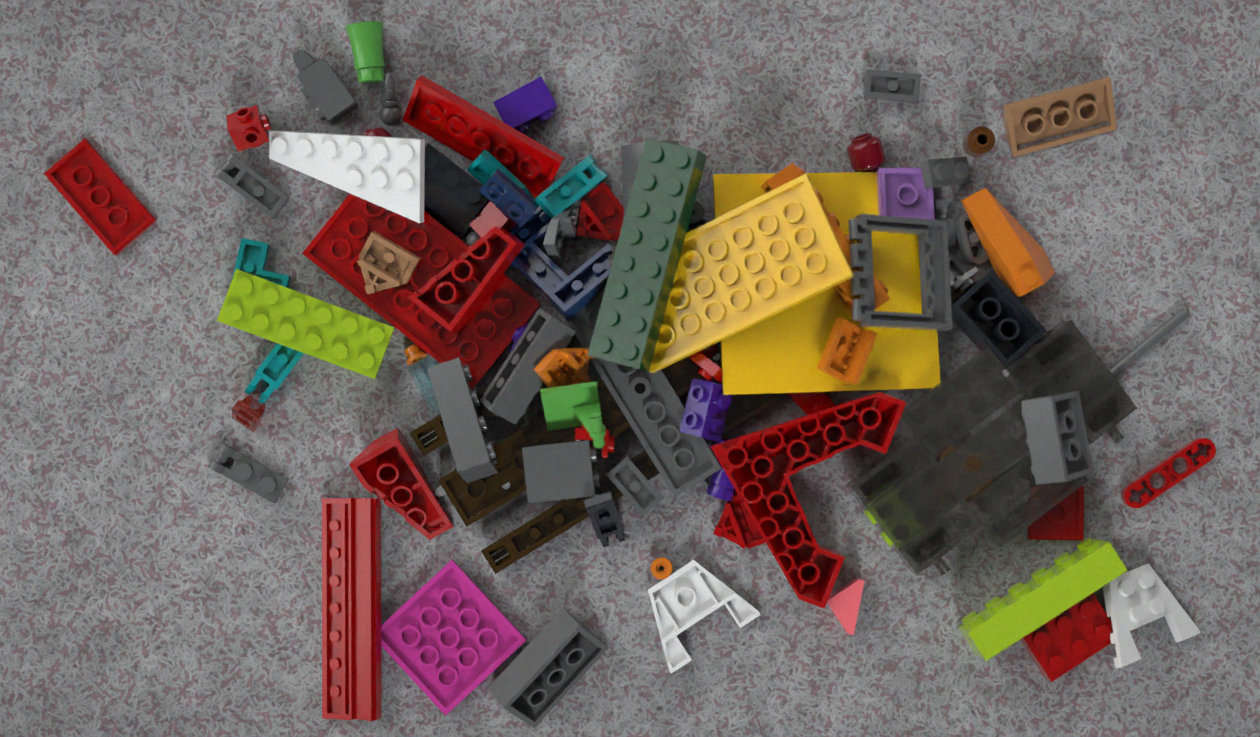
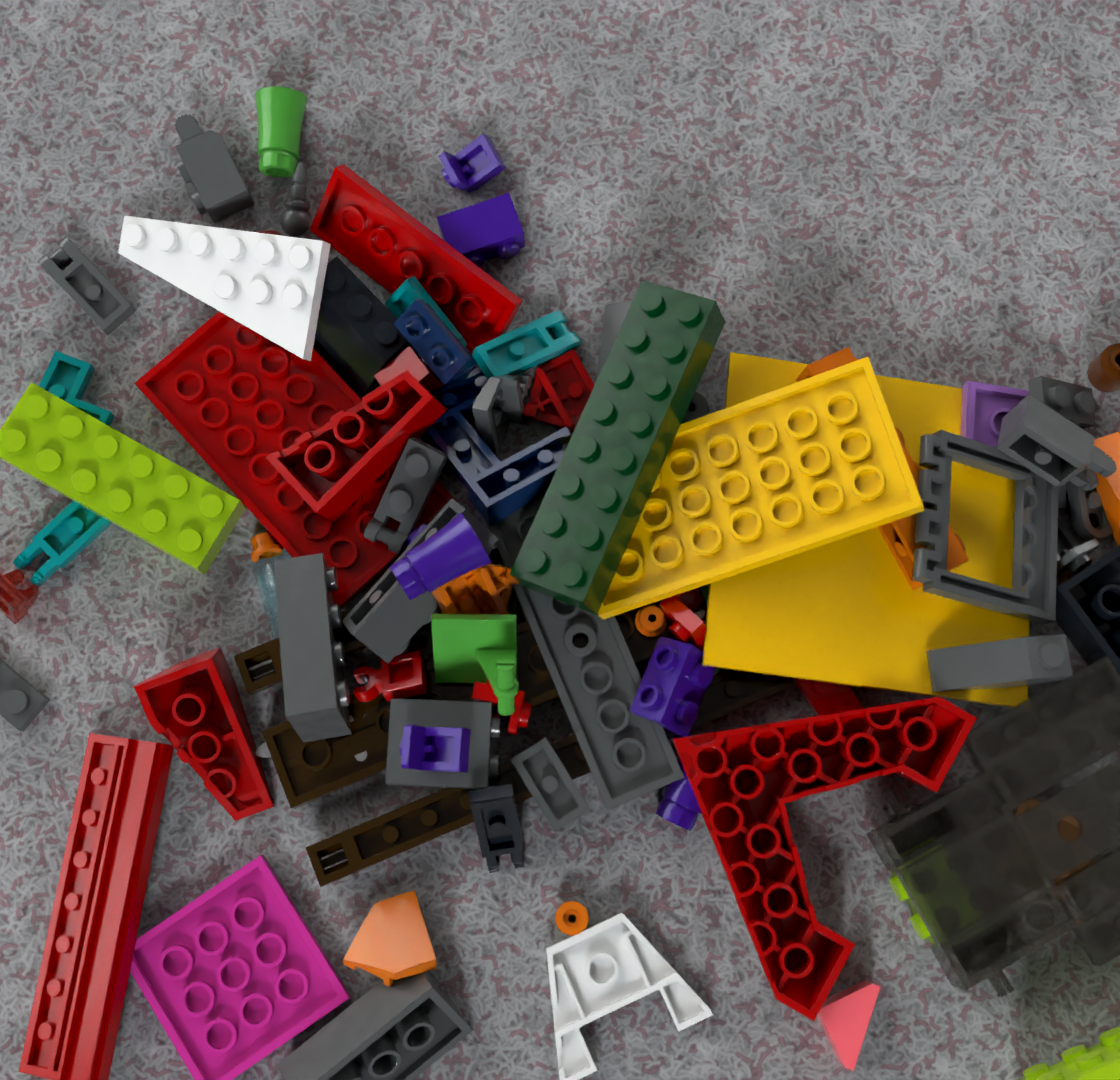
camera: 15 degrees right, 10 degrees down
(248, 127) = (96, 206): red brick -> none
(385, 263) = (246, 413): medium nougat slope -> none
(507, 306) = (406, 494): none -> dark grey plate
(510, 55) = (472, 165): none -> dark purple bracket
(524, 433) = (396, 680): none -> red plate
(541, 354) = (440, 558): none -> dark purple plant
(548, 600) = (392, 941): none -> orange slope
(558, 477) = (435, 748): none -> dark purple bracket
(685, 373) = (649, 628): none -> orange piece
(738, 525) = (697, 870): red slope -> none
(846, 352) = (895, 629): orange bracket -> none
(866, 153) = (950, 361): dark red head -> none
(892, 86) = (995, 278): dark grey plate -> none
(917, 363) = (1000, 664): none -> dark grey slope
(939, 209) = (1052, 446): none -> dark grey hinge

